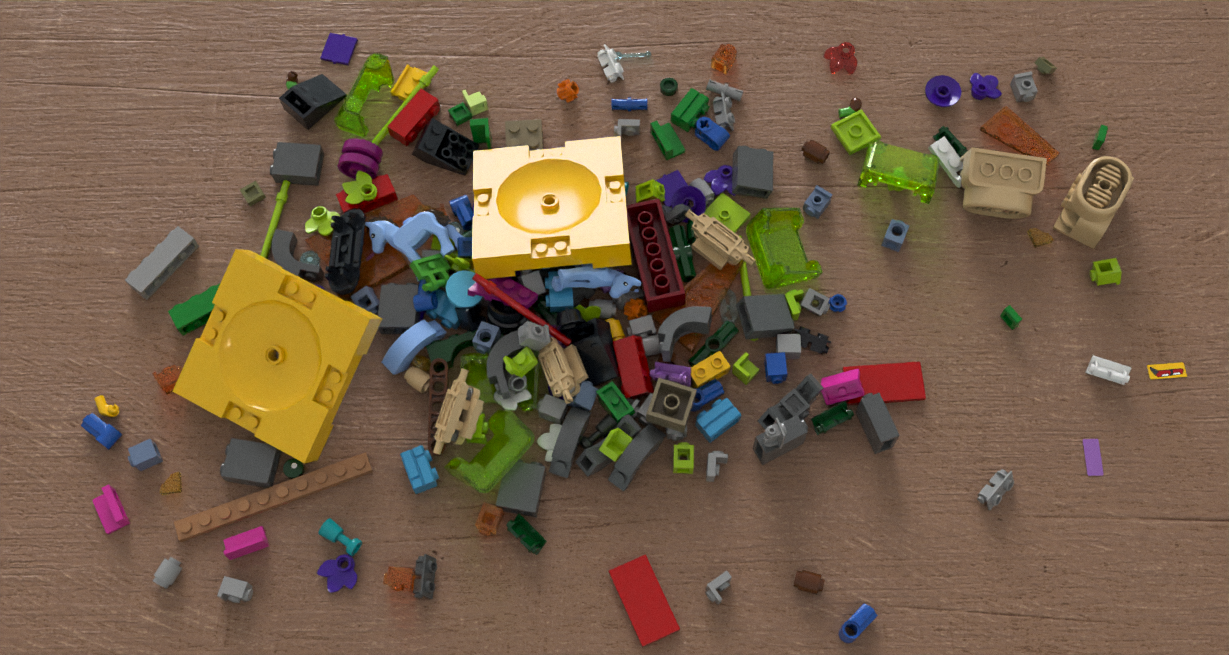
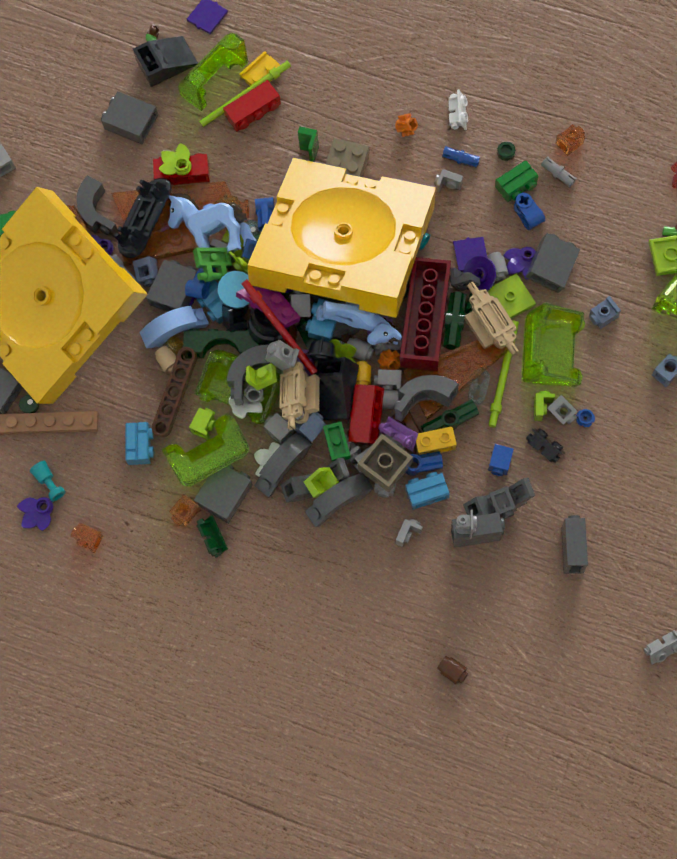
camera: 25 degrees right, 5 degrees up
(252, 193) = (79, 133): olive plate -> none
(281, 199) = (104, 146): lime bar -> none
(310, 257) = (110, 212): clear light blue tile -> none
(320, 221) = (131, 180): lime plate -> none
(360, 156) = (186, 130): magenta wheel -> none
(426, 568) = (113, 535): dark grey hinge -> none
(445, 148) = (270, 145): black slope -> none
(458, 413) = (188, 404): tan piece -> none
(460, 113) = (297, 115): green tile -> none
(475, 102) = (315, 109): yellowish green panel -> none
(486, 330) = (239, 334): sand blue brick -> none
(603, 429) = (319, 461): pearl dark grey piece -> none
(644, 600) = (296, 633): red tile -> none
(647, 54) = (498, 112): clear light blue hinge -> none
(649, 191) = (446, 250): lime bracket -> none
(666, 140) = (484, 204): green panel -> none
(683, 466) = (381, 507): lime brick -> none
(720, 584) = (370, 642): light grey bracket -> none
(723, 105) = (550, 186): light grey hinge -> none
(744, 369) = (471, 451): lime panel -> none
(764, 316) = (509, 407): dark grey brick -> none
(789, 344) = (521, 443): light grey panel -> none
(815, 152) = (623, 262): reddish brown brick -> none
(831, 418) = (535, 525): dark green hinge -> none
(842, 387) = (555, 499): dark pink panel -> none
(858, 623) = (484, 723): blue piece -> none
(893, 381) = (600, 509): red tile -> none

